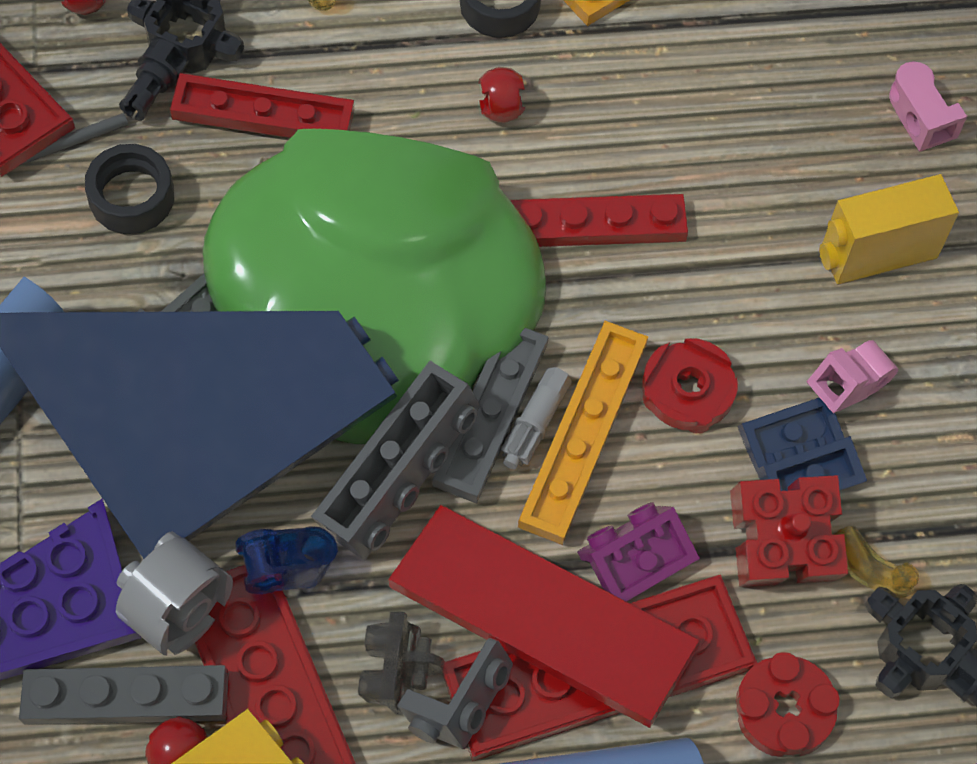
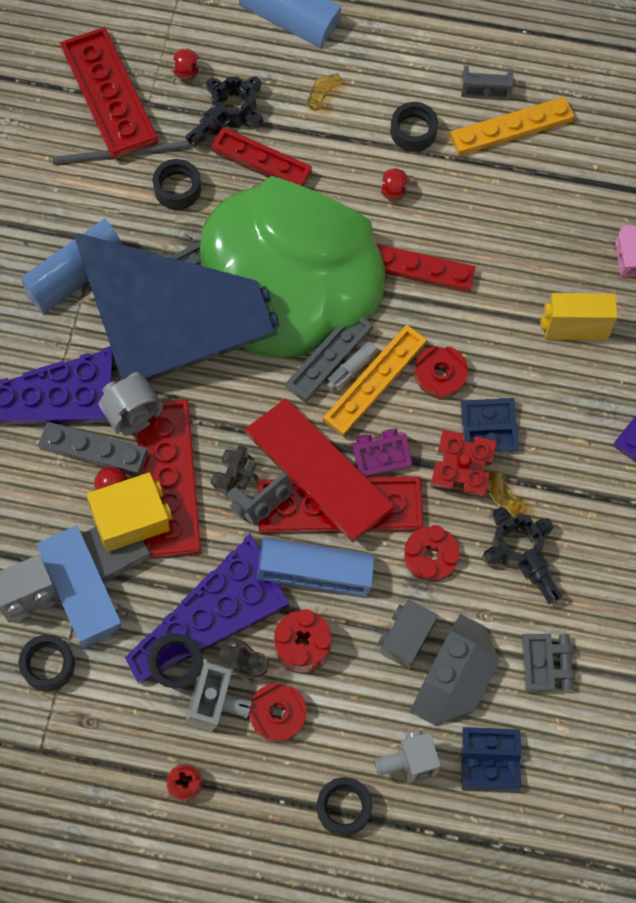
camera: 20 degrees right, 5 degrees up
(277, 560) = (190, 400): clear blue piece -> none
(398, 460) = (268, 368): dark grey brick -> none
(857, 371) = (534, 391): bright pink leg -> none

